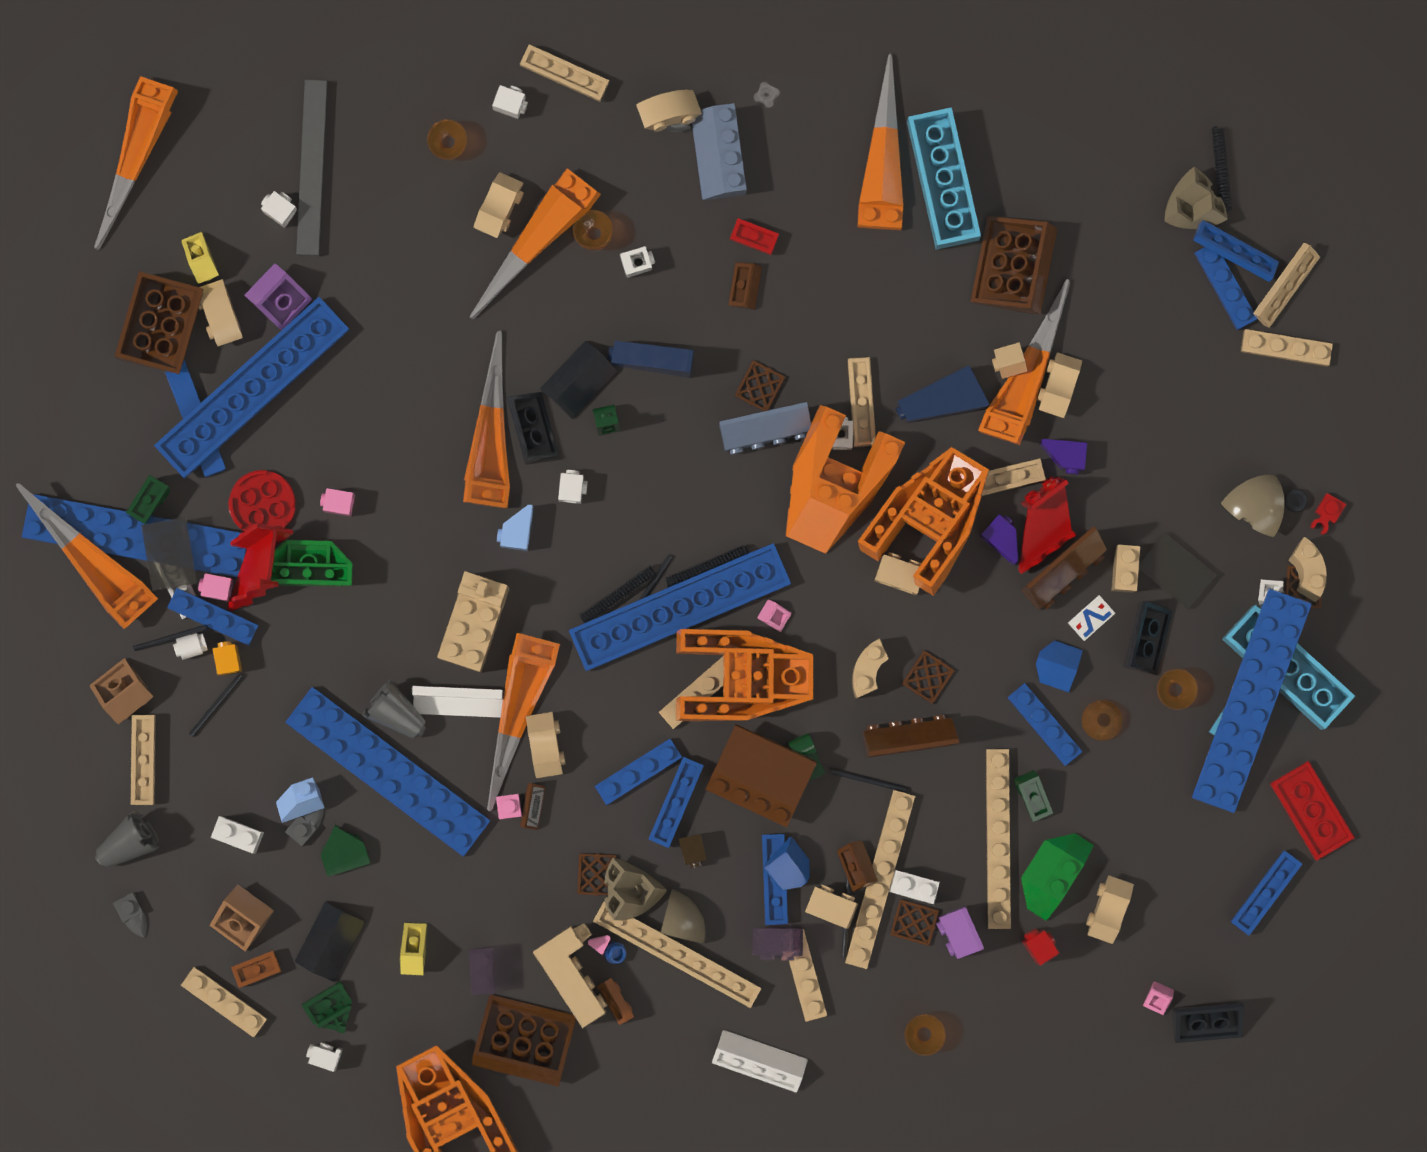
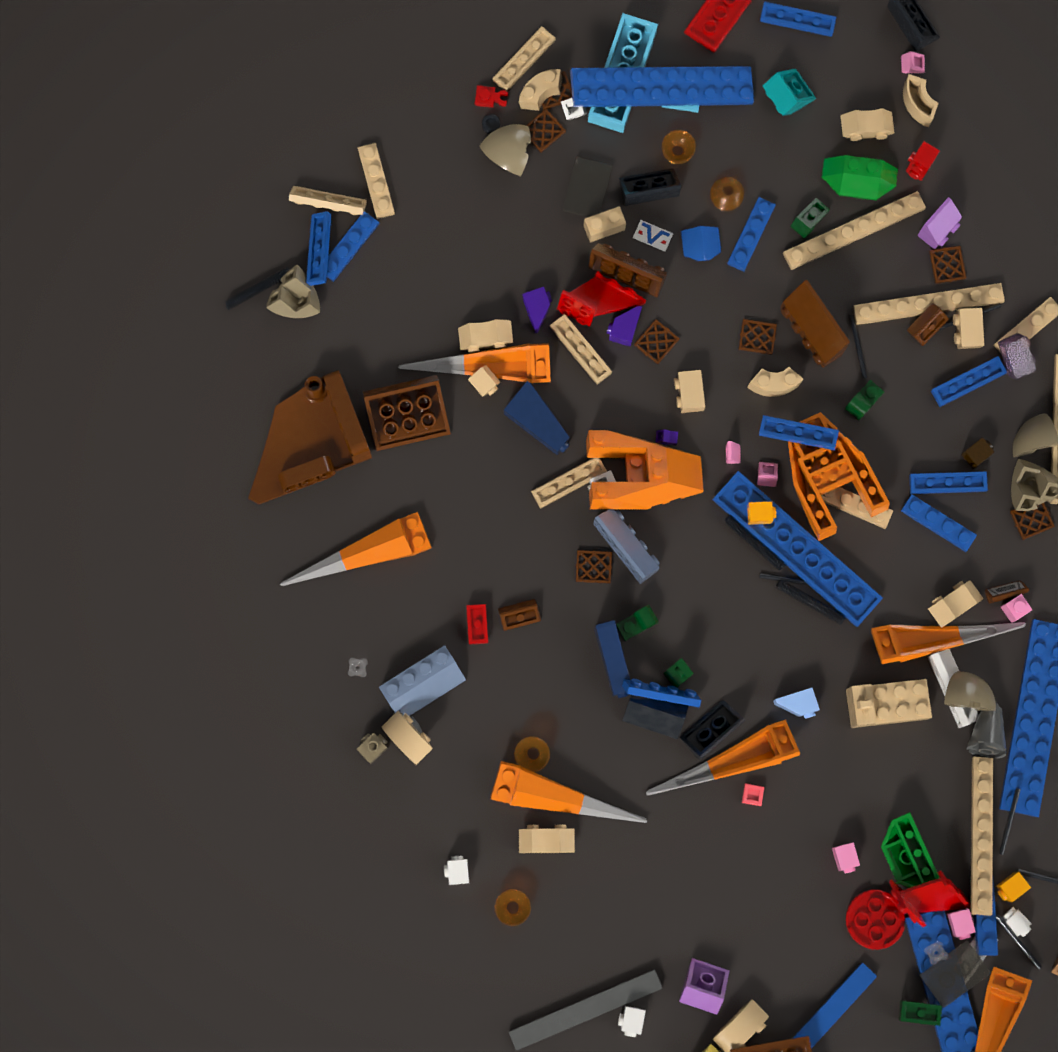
camera: 115 degrees left, 5 degrees down
(204, 540) = (930, 951): none -> clear plate
(251, 387) = (788, 972): blue plate -> none
(293, 652) = (982, 836): none -> tan plate
(294, 689) = (1009, 821): none -> black axle
(446, 439) = (752, 794): none -> coral tile
(446, 709) = (970, 692): none -> dark tan brick
(564, 73) = (414, 838): tan plate -> none
(572, 487) = (744, 675): white brick -> none
(593, 389) = (655, 691): none -> blue plate
(628, 259) = (548, 709): white brick -> none
(676, 72) = (372, 747): none -> dark tan brick
(679, 403) = (637, 623): none -> dark green plate
(733, 583) = (760, 513): none -> light orange brick
(761, 775) = (898, 425): reddish brown slope -> none
(788, 866) = (955, 374): blue slope -> none
(800, 662) = (798, 432): none -> blue plate
(813, 589) = (732, 453): none -> bright pink slope
(861, 525) = (666, 437): none -> dark purple piece
(914, 887) = (923, 274): white brick -> none
(934, 1043) = (1034, 211): clear orange piece -> none
(937, 503) = (624, 384): orange wedge -> none
(943, 178) = (363, 495): medium azure brick -> none
(979, 582) = (666, 330): none -> reddish brown window
(1030, 152) = (309, 439): none -> reddish brown panel
(1111, 976) = (918, 101): none -> tan brick
(1186, 842) = (788, 91): none -> teal slope
(1268, 544) = (552, 140): none -> reddish brown window
(1354, 570) = (524, 59): none -> tan tile

